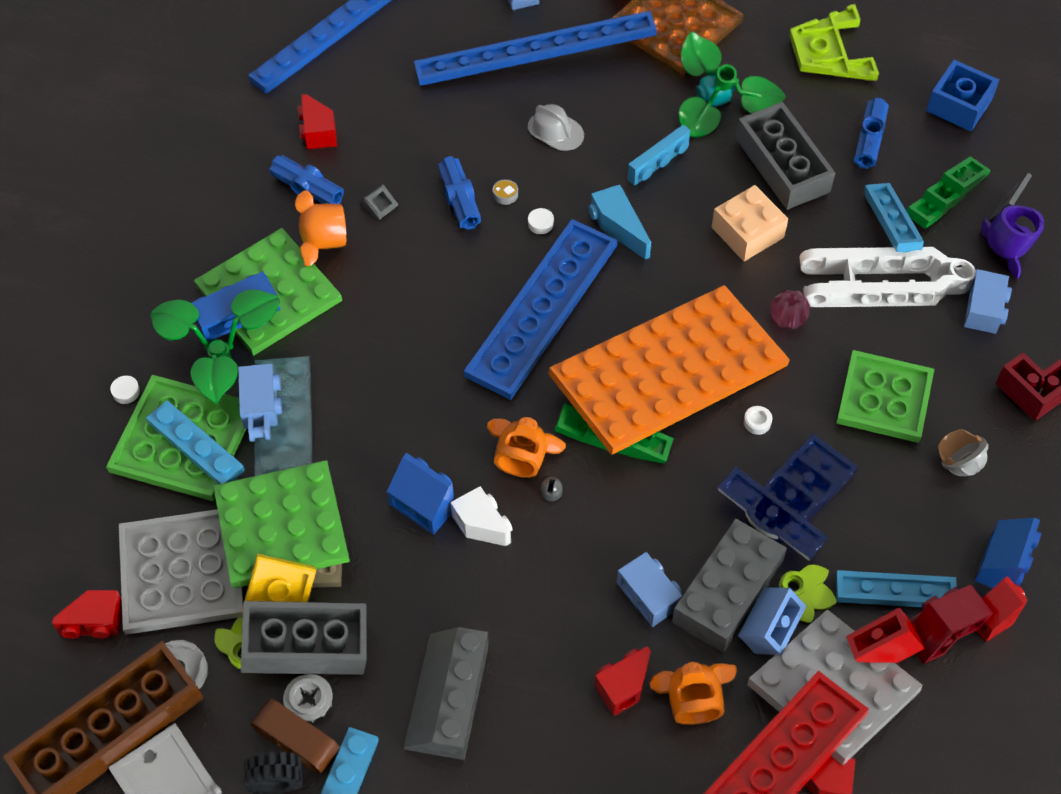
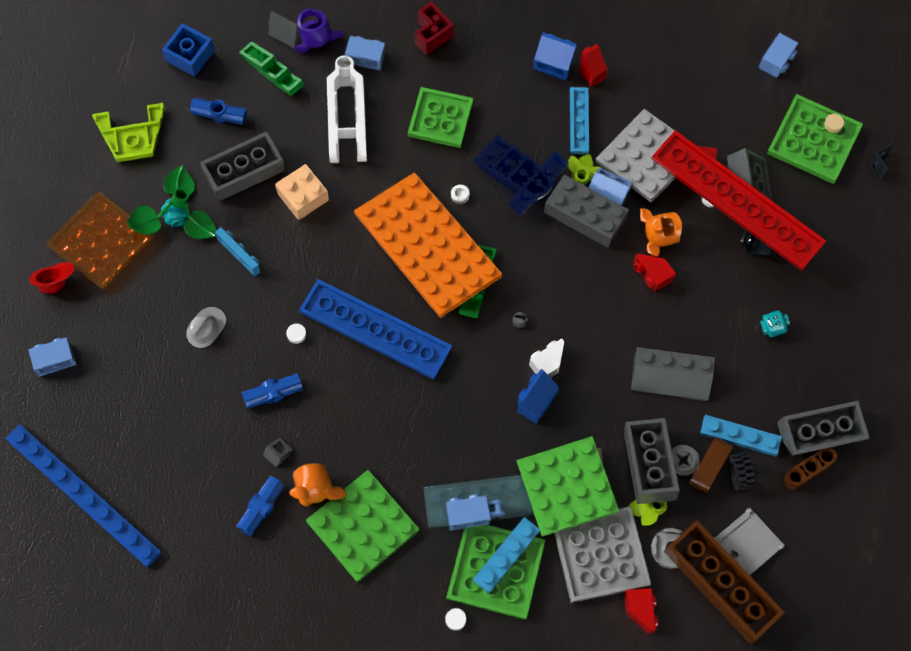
camera: 95 degrees left, 10 degrees up
(215, 309) = (389, 540): blue brick -> none
(219, 372) = (411, 576): green plant -> none
(279, 580) = (617, 481): yellow tile -> none
(318, 124) = (202, 502): red slope -> none
(505, 192) = (267, 360): tile -> none
(522, 446) = (495, 335): orange piece -> none
(535, 48) = (130, 342): blue plate -> none
(619, 219) = (296, 278): dark azure slope -> none
(649, 588) = (591, 257): medium blue brick -> none
(790, 309) = (375, 169): clear pink piece -> none
(885, 639) = (622, 124): red slope -> none
(893, 217) = (300, 100): dark azure plate -> none
(949, 619) = (607, 90): dark red brick -> none
(963, 452) = (485, 74): piece -> none

